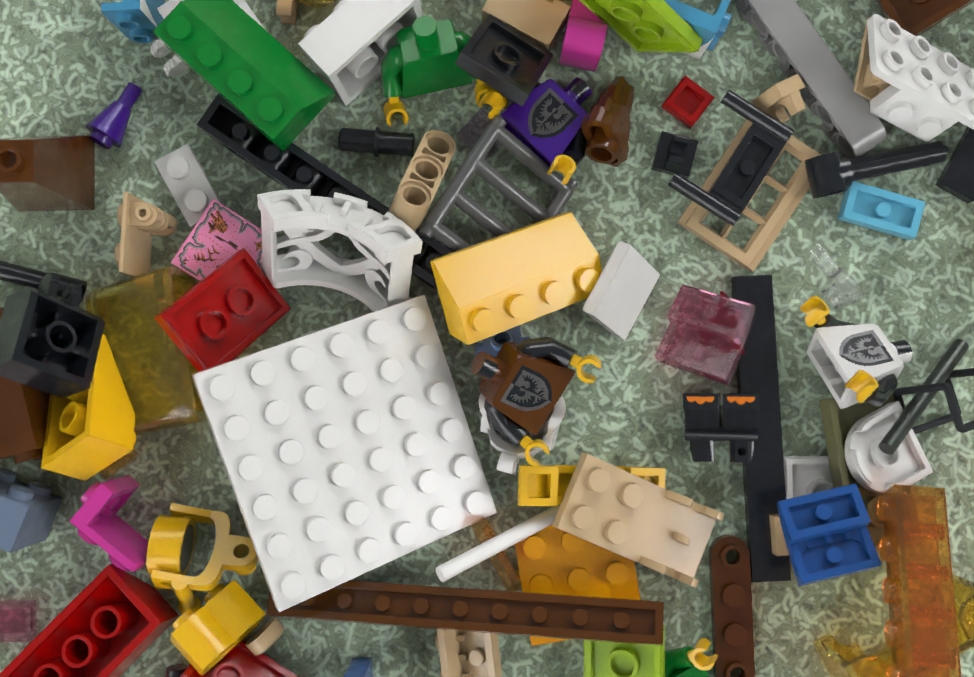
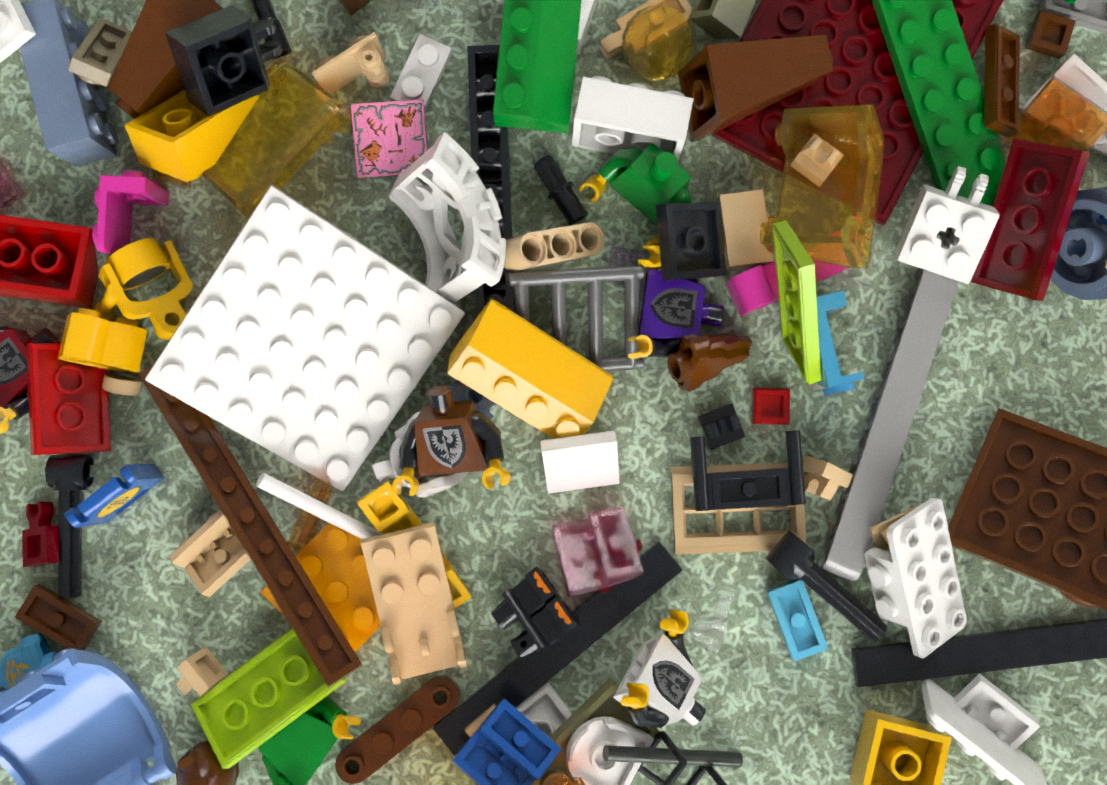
camera: 55 degrees right, 0 degrees up
(223, 312) = (340, 172): red tile -> none

